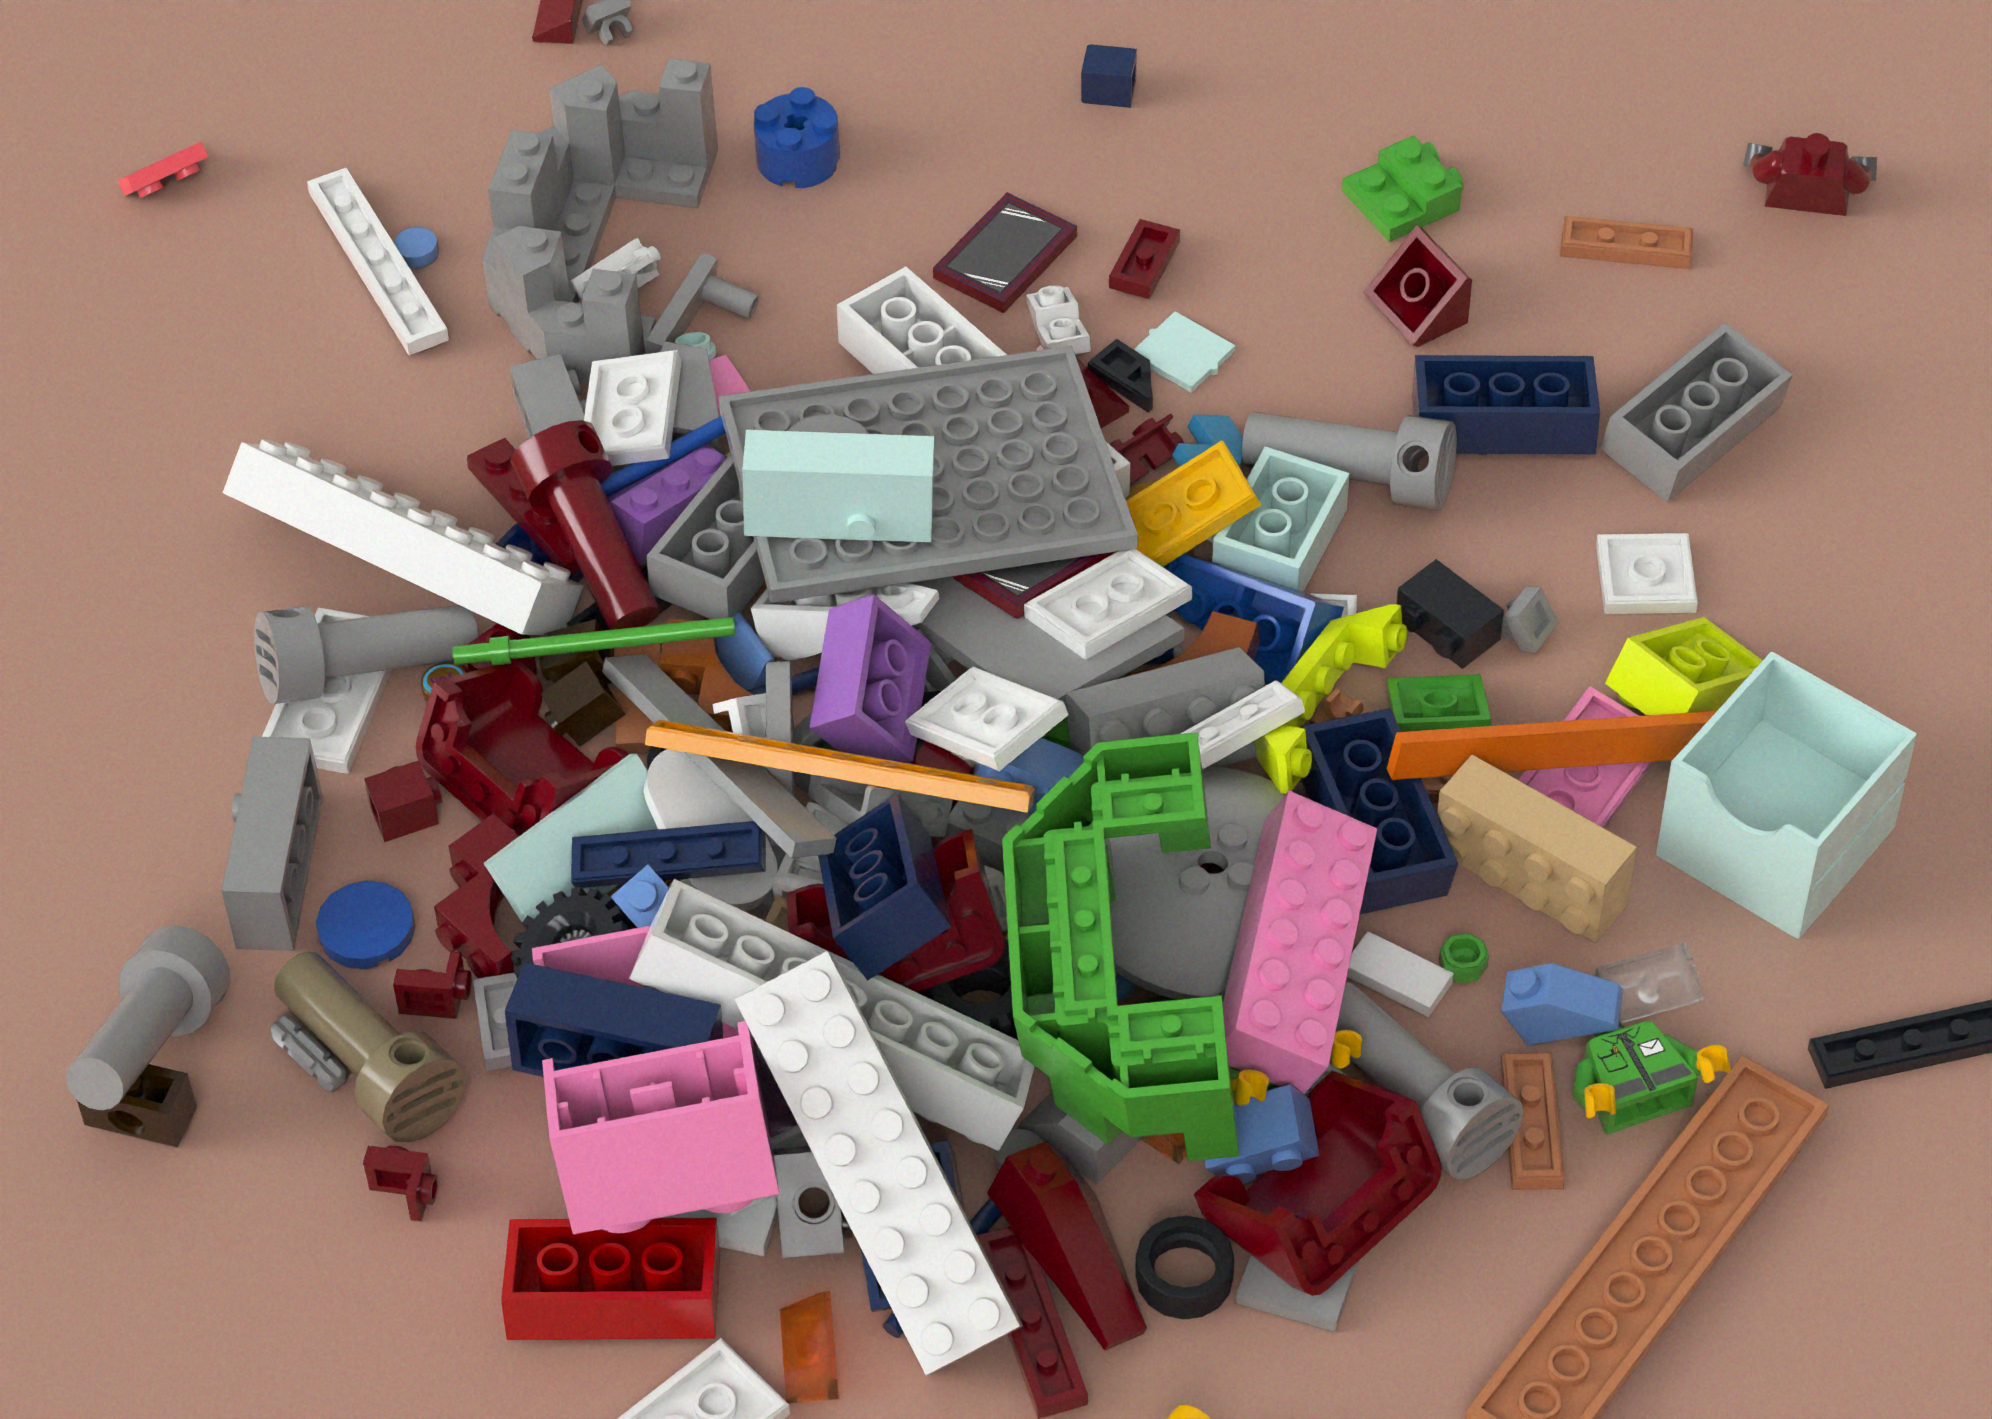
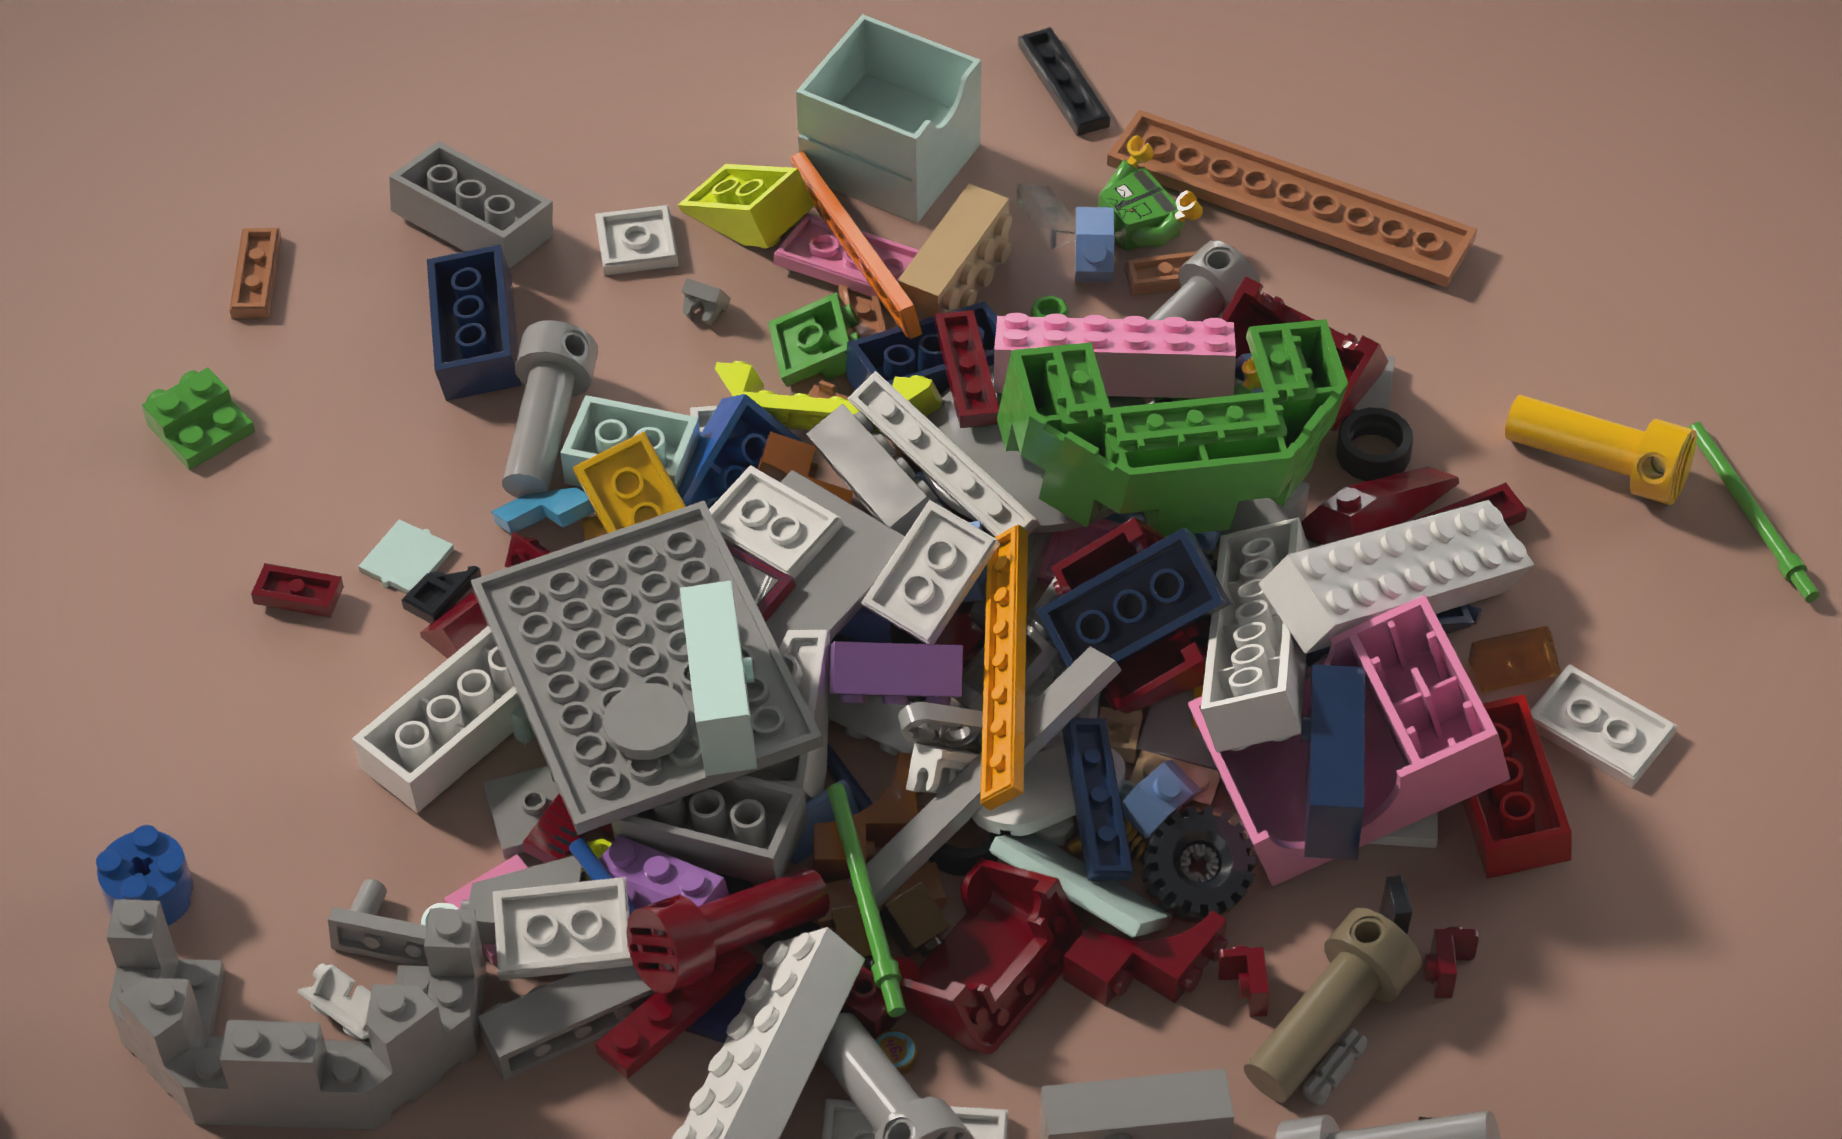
camera: 100 degrees left, 0 degrees up
(365, 924) = (1183, 1045): blue tile -> none
(403, 800) = (1046, 1048): dark red brick -> none
(451, 1116) = (1396, 902): none -> black tile
(491, 1000) = (1269, 920): light grey plate -> none
(1005, 252) = (287, 701): tile -> none
(1057, 319) = (374, 652): white slope -> none
(1108, 75) = (49, 635): dark blue panel -> none
(1254, 795) = (967, 369): none -> dark red plate
(1422, 290) = (333, 388): dark red slope -> none
(1449, 614) = (707, 338): black brick -> none
(1810, 174) = (191, 153): dark red torso -> none

